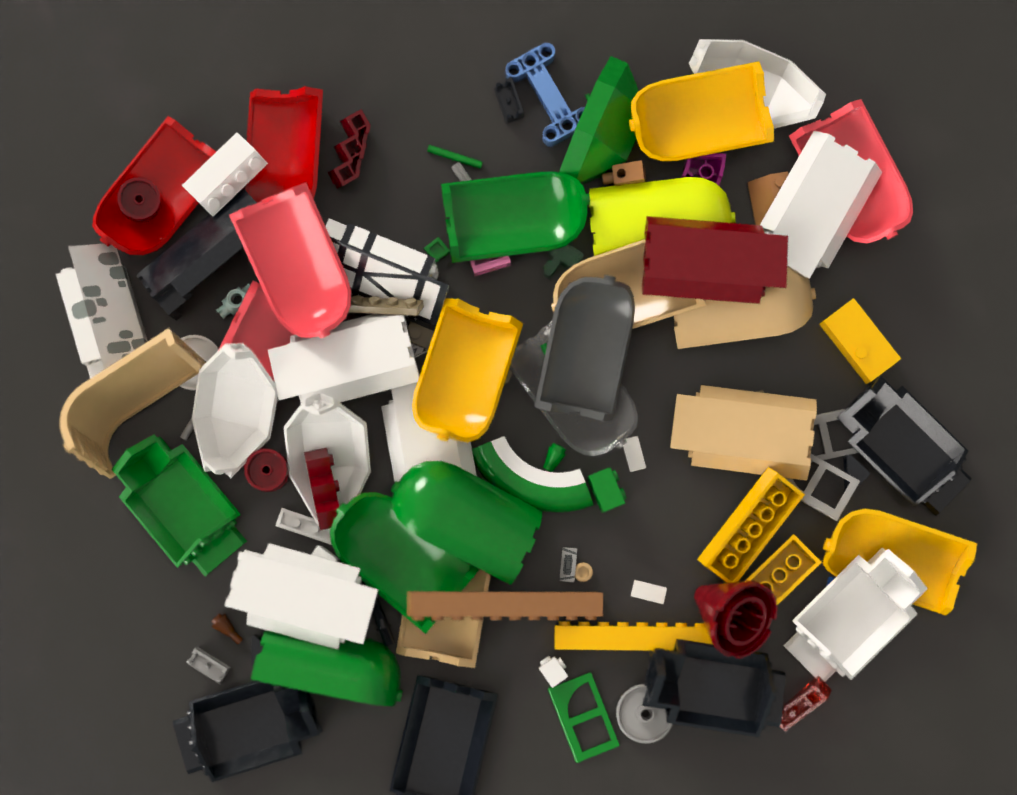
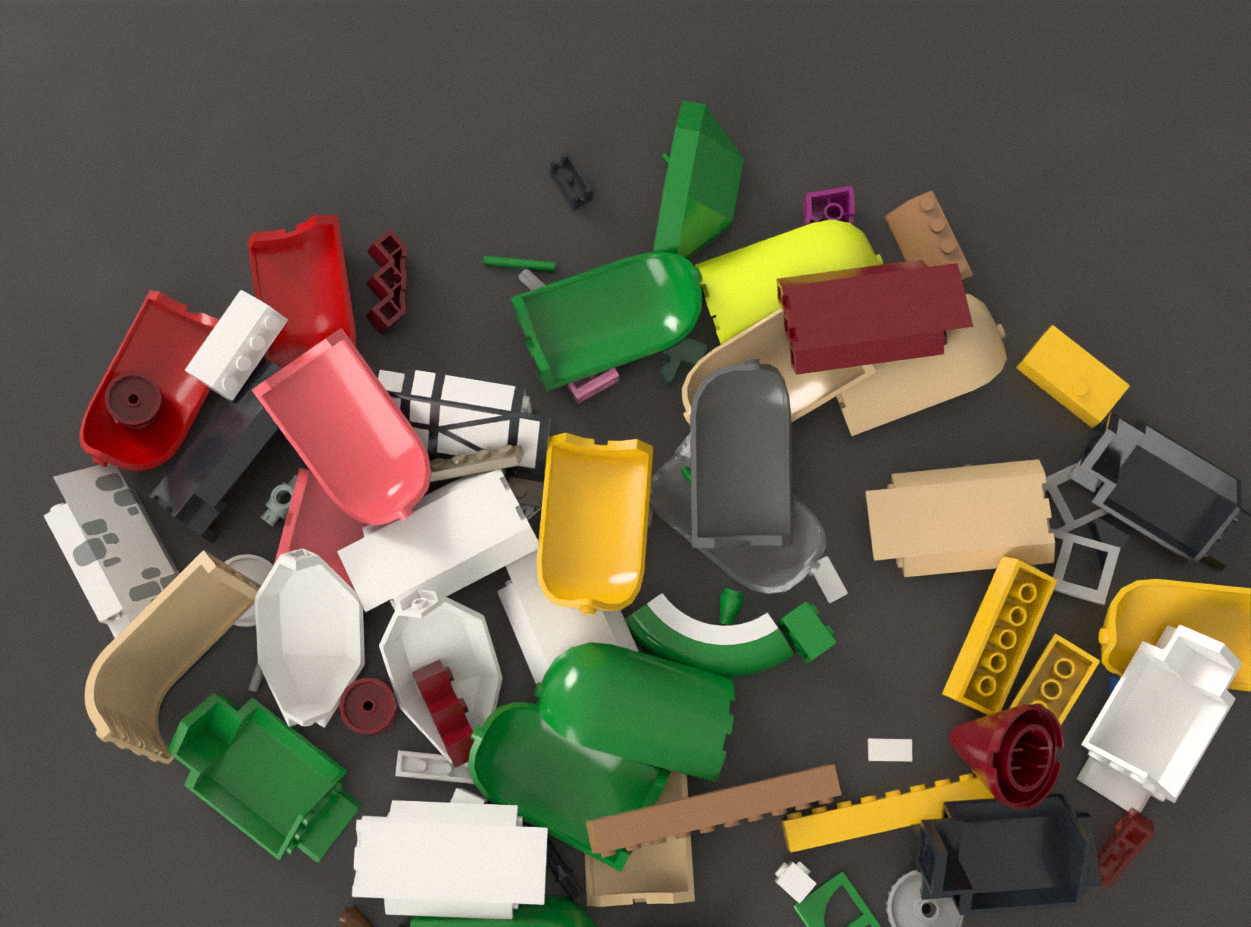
camera: 15 degrees left, 5 degrees down
(437, 249) = (524, 379): green tile -> none
(546, 92) = (614, 161): medium blue beam -> none
(568, 564) = (780, 738): sticker -> none
(583, 572) = (801, 744): tan tile -> none
(633, 172) = (741, 232): medium nougat torso -> none
(702, 113) = (813, 142): yellow panel -> none
(789, 91) = (866, 97): white panel -> none
(820, 202) = (982, 216): white panel -> none
(890, 202) = (1014, 177): coral panel -> none

